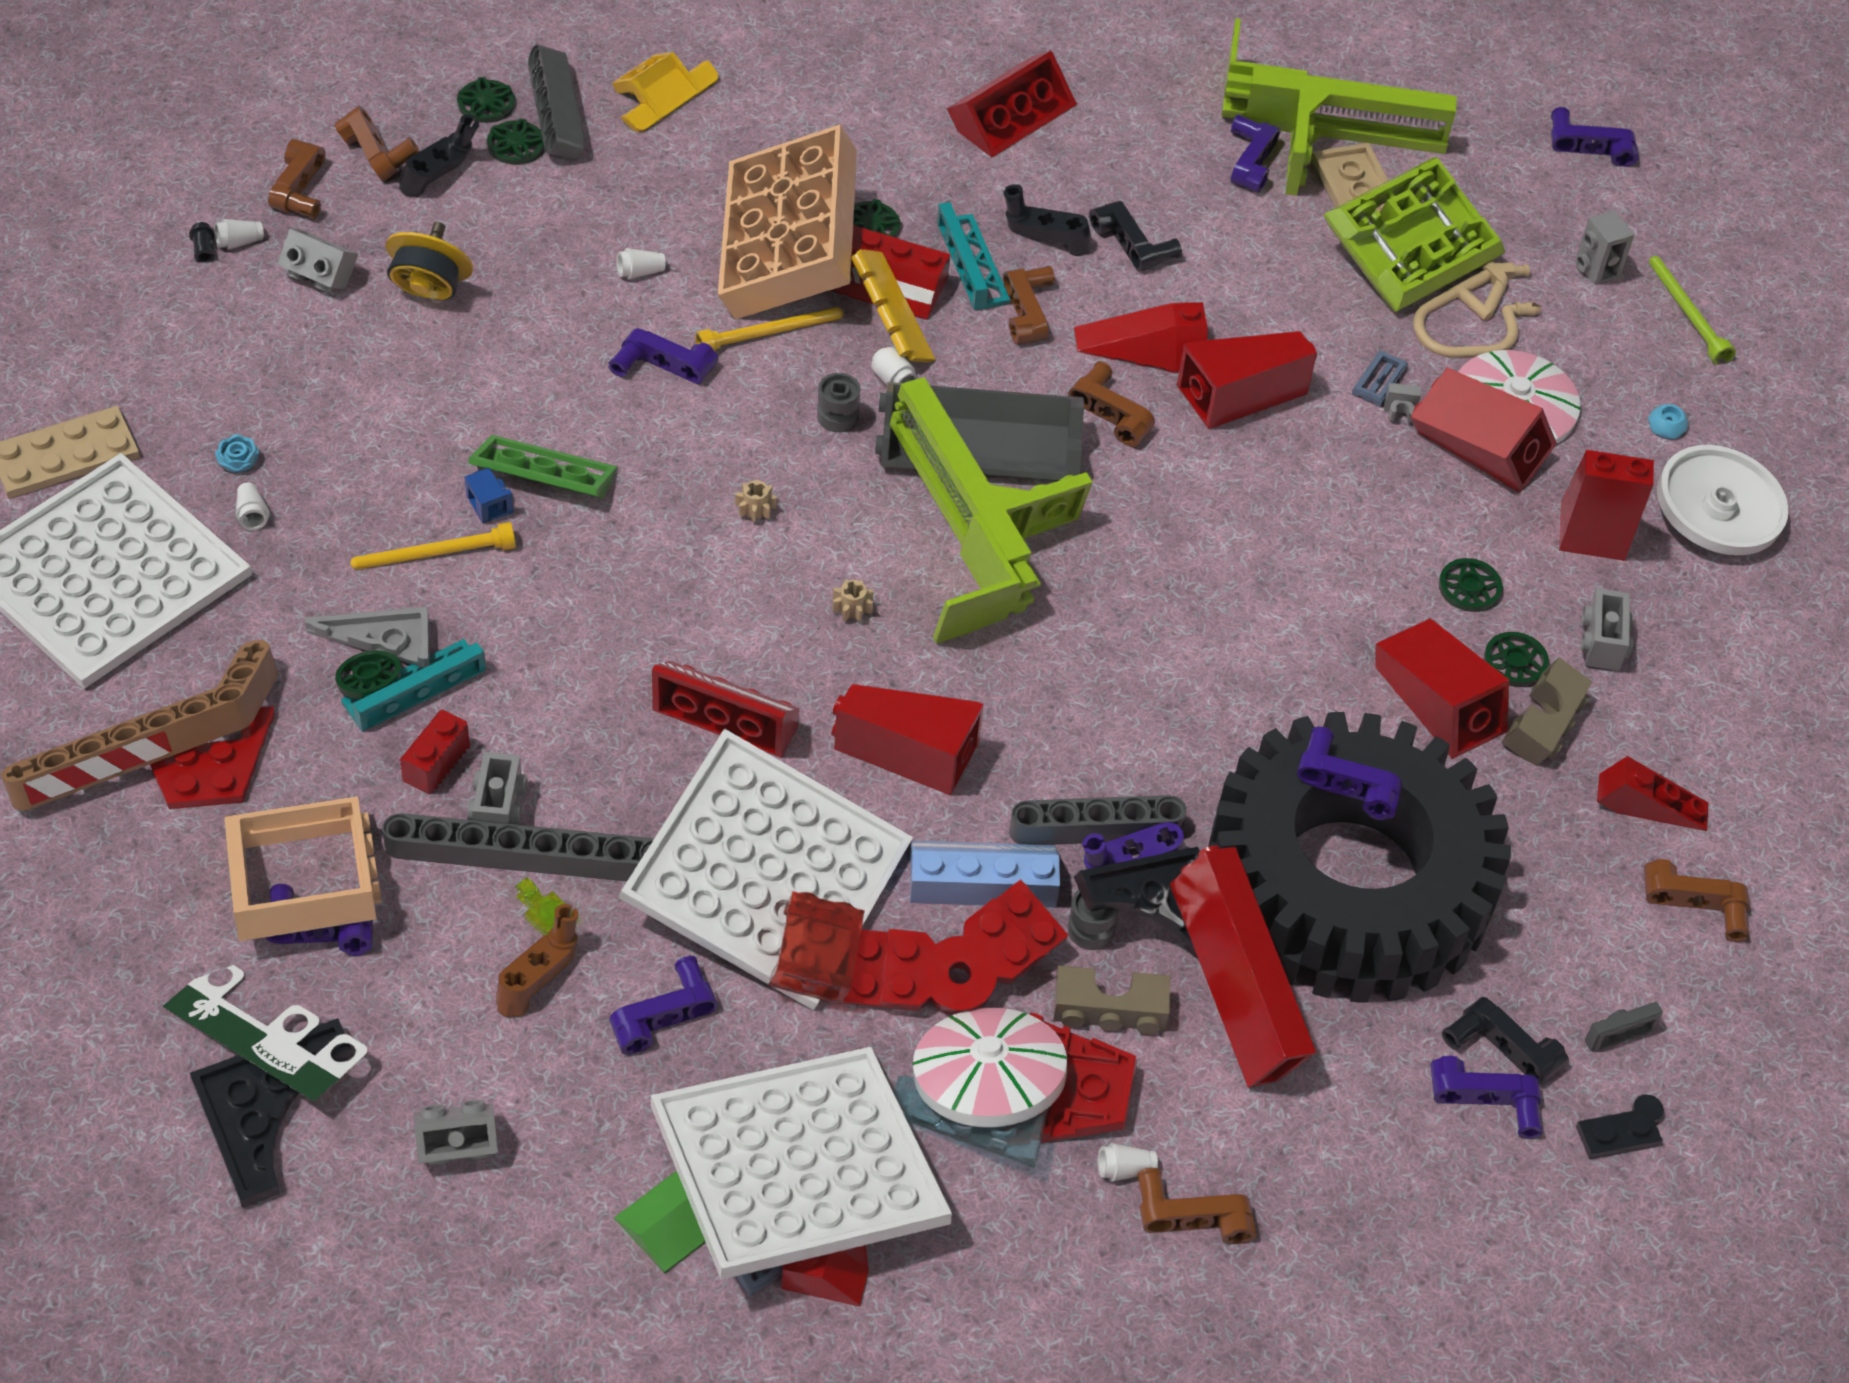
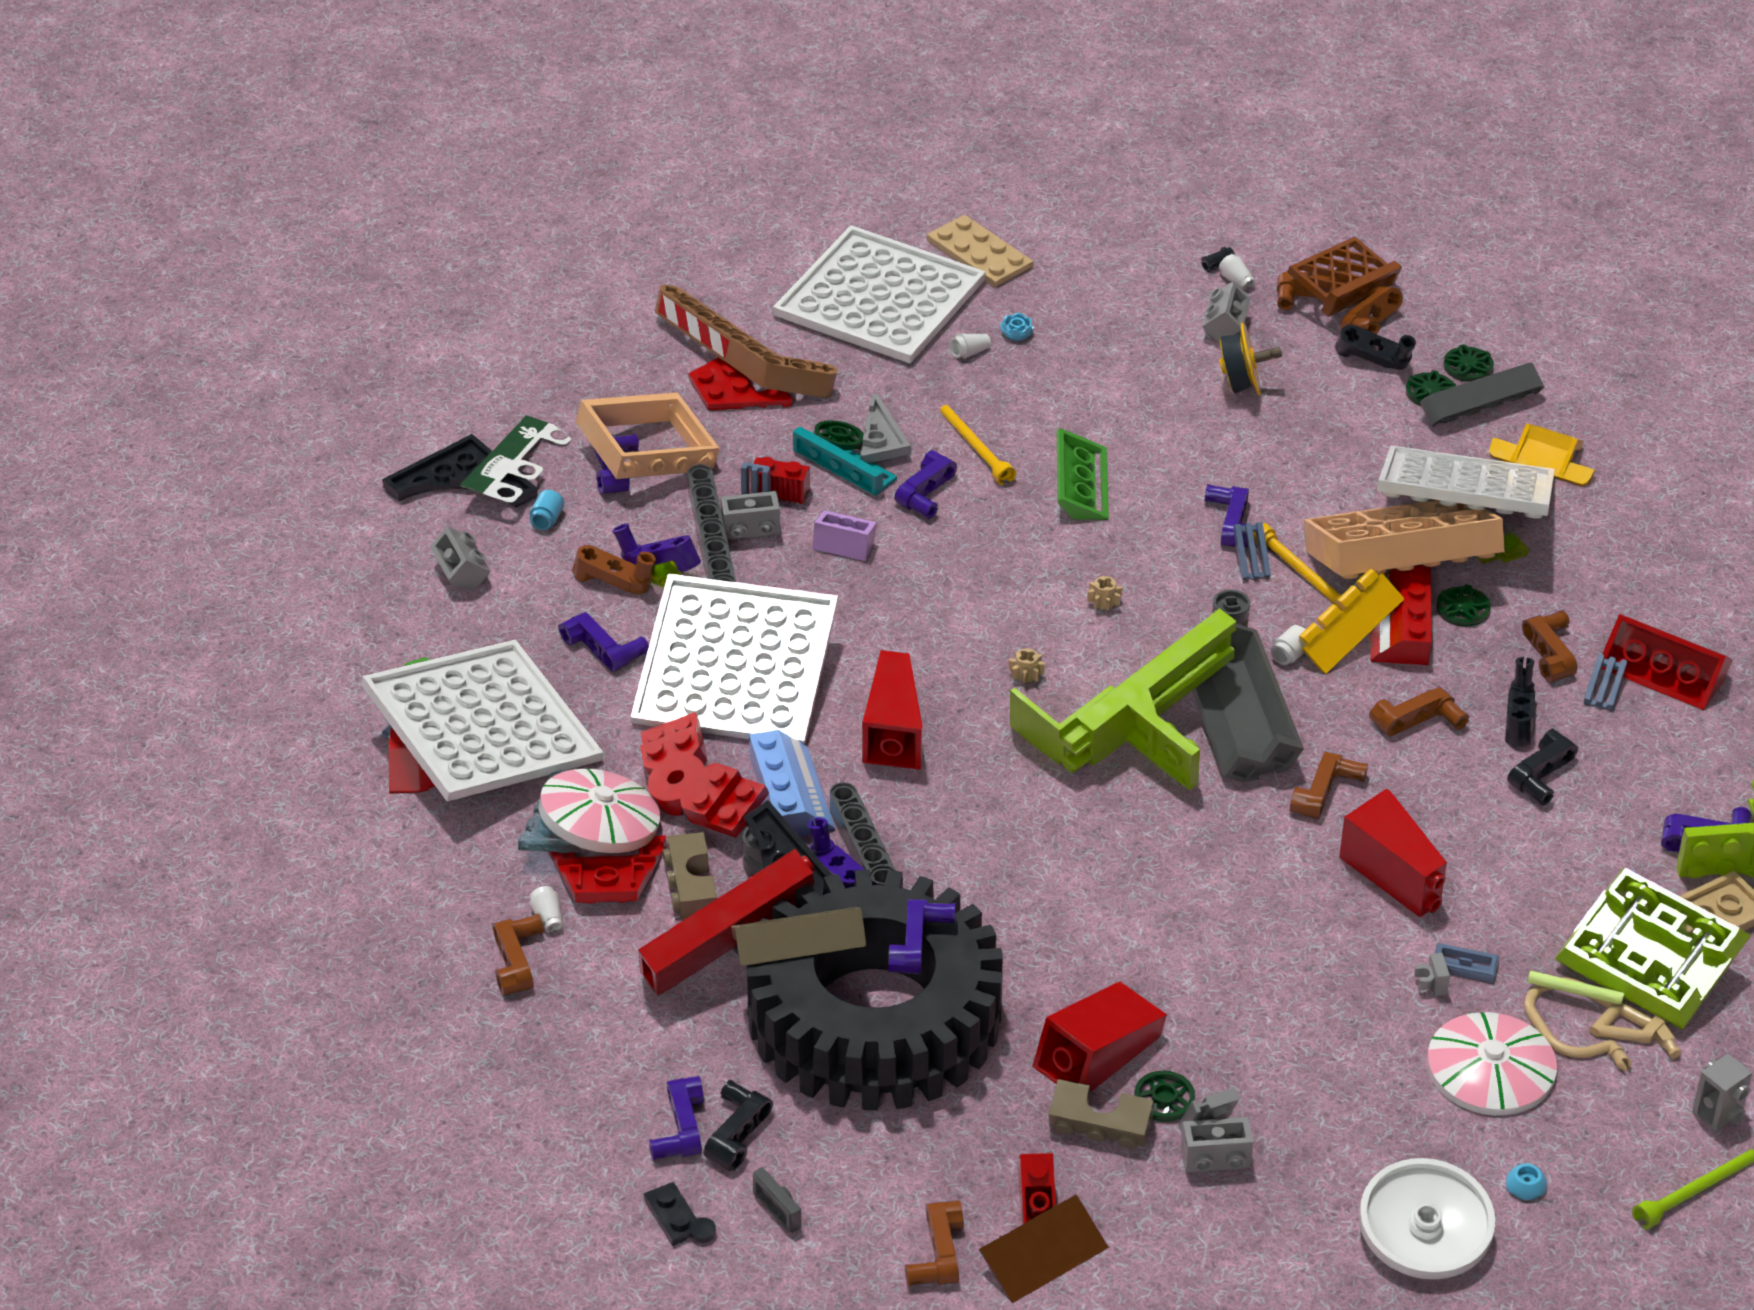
camera: 80 degrees right, 10 degrees down
(327, 131) = (1357, 287): none -> dark orange fence
(383, 1017) = (546, 509): none -> medium azure brick
(456, 775) = (745, 478): none -> sand blue tile
(488, 495) = (1036, 452): blue brick -> none
(511, 633) = (934, 472): none -> dark purple beam
(545, 886) = (676, 549): none -> dark purple beam
(563, 712) = (844, 535): none -> lavender brick
(639, 263) = (1329, 480): white cone -> none
(720, 705) = (884, 608): red slope -> none
(722, 147) = (1466, 481): none -> white plate
(737, 356) = (1248, 528): none -> sand blue tile
(818, 947) = (669, 690): clear red panel -> none
(945, 178) = (1557, 659): none -> dark orange beam
(966, 263) = (1454, 660): teal fence -> none
(1027, 153) = (1610, 665): none -> sand blue tile
(1145, 336) = (1426, 796): red wedge -> none
(1317, 884) = (799, 936): none -> dark tan panel
(1440, 307) = (1576, 987): none -> yellowish green bar
(1470, 584) = (1238, 1054): dark green wheel -> none
(1485, 427) = (1419, 1029): slope -> none
(1571, 620) = (1212, 1107): none -> light grey plate
(1605, 504) = (1349, 1109): red slope -> none
(1715, 809) = (1043, 1248): none -> reddish brown window

